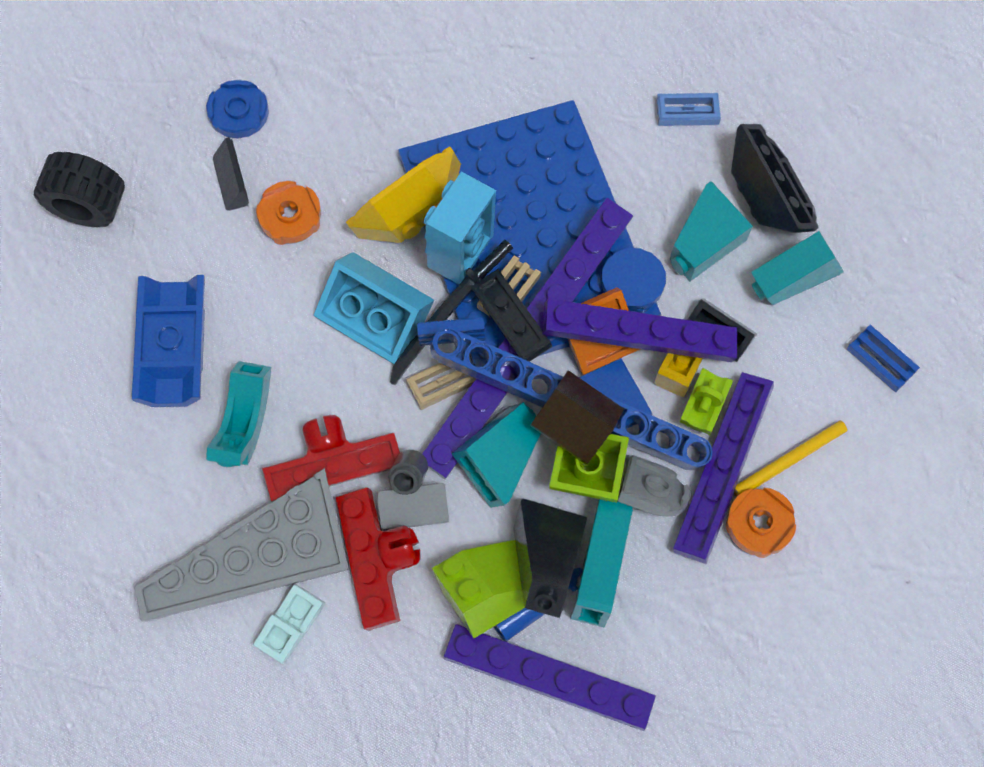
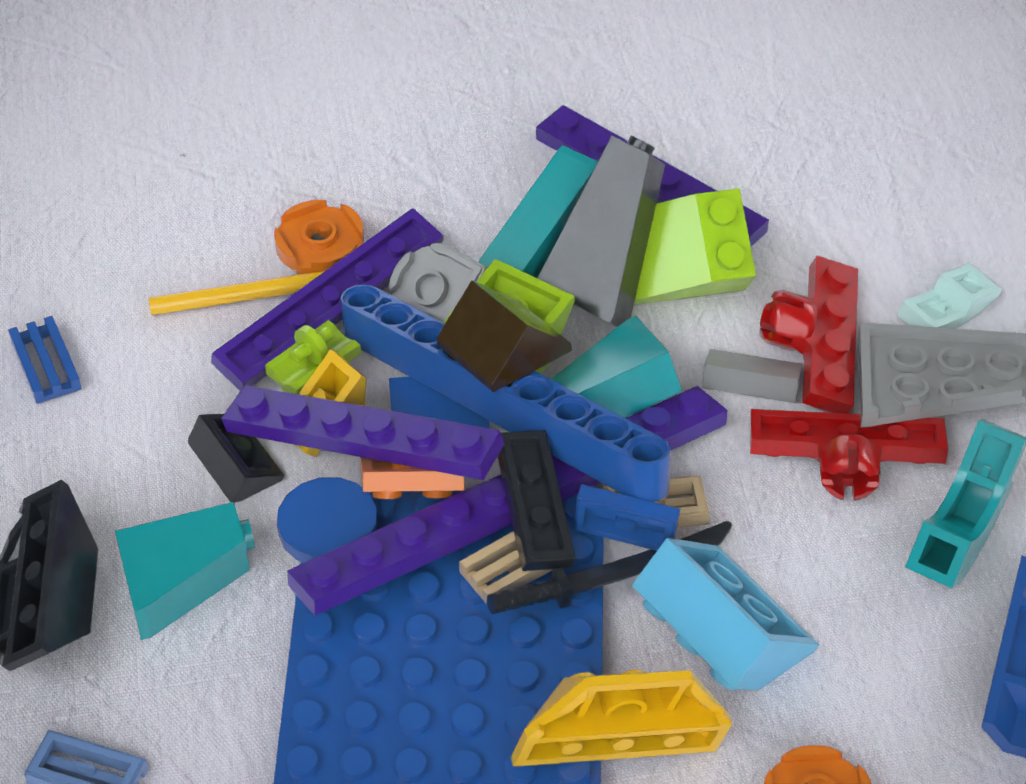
camera: 155 degrees left, 20 degrees down
(408, 472) = (750, 378): dark grey brick -> none
(459, 227) = (564, 597): medium azure brick -> none
(796, 270) = (98, 464): teal slope -> none

